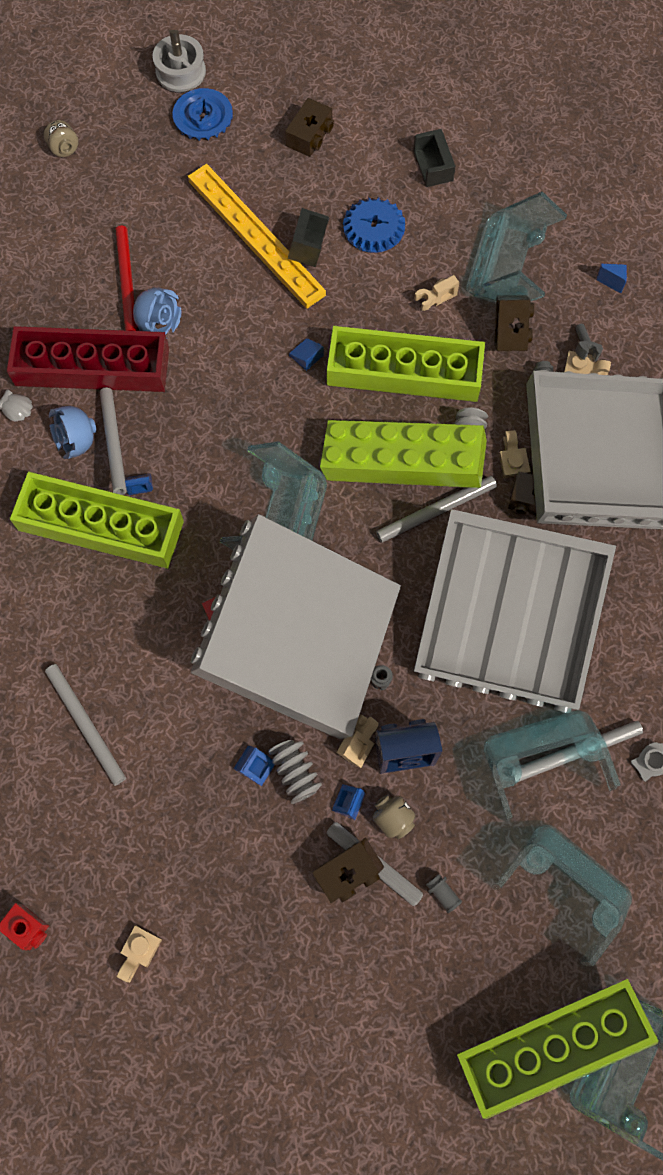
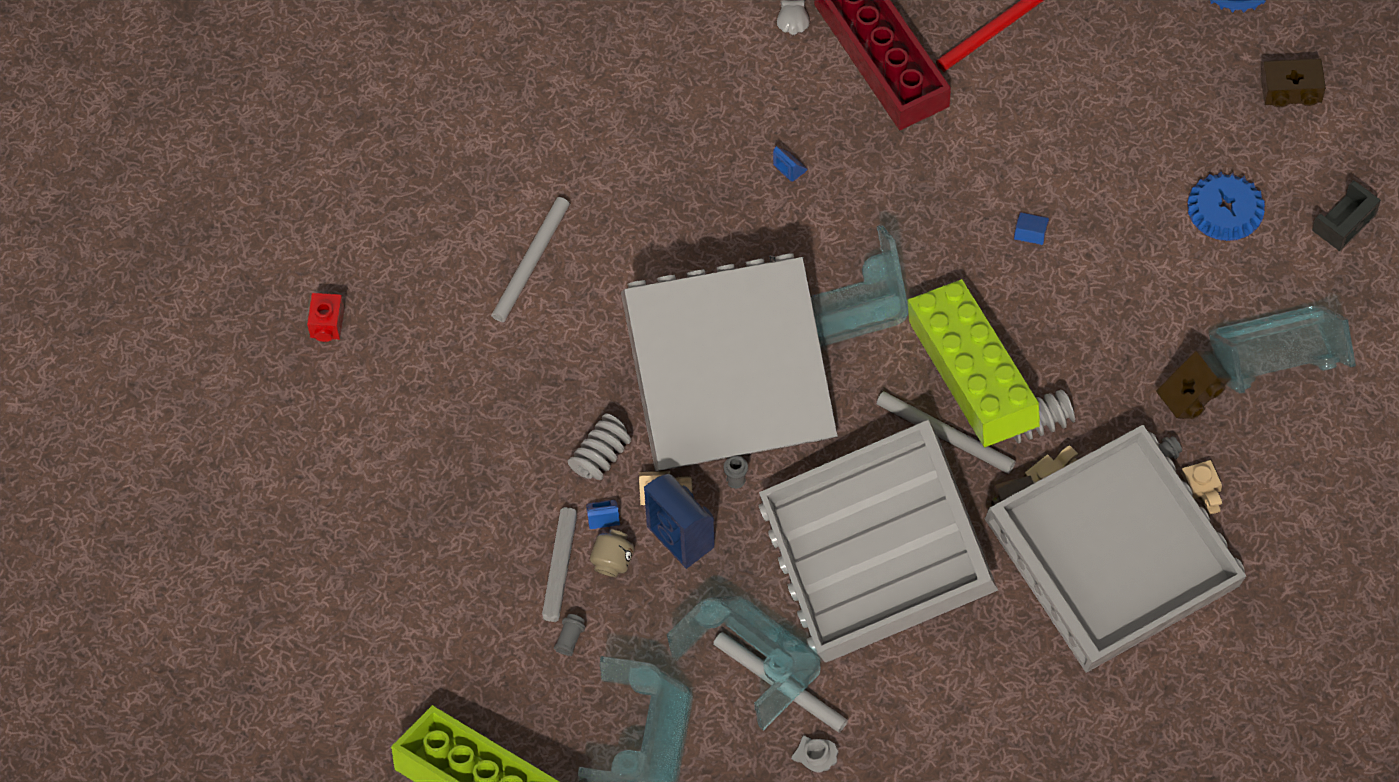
camera: 60 degrees right, 10 degrees down
(70, 427) = (800, 77): medium blue cylinder -> none
(97, 519) = (725, 151): lime brick -> none
(112, 441) = (812, 115): light grey piece -> none
(139, 950) = (364, 419): tan plate -> none
(159, 307) = (975, 68): medium blue cylinder -> none
(254, 765) = (583, 417): blue slope -> none
(256, 236) = (1128, 109): yellow plate -> none
(308, 237) = (1156, 152): pearl dark grey panel -> none
(332, 874) = (537, 539): dark brown brick -> none
(405, 363) = (1078, 316): lime brick -> none
(442, 291) = (1187, 306): tan plate -> none
(585, 345) = (1228, 471): dark grey bar -> none
(613, 276) = (1332, 457): blue slope -> none

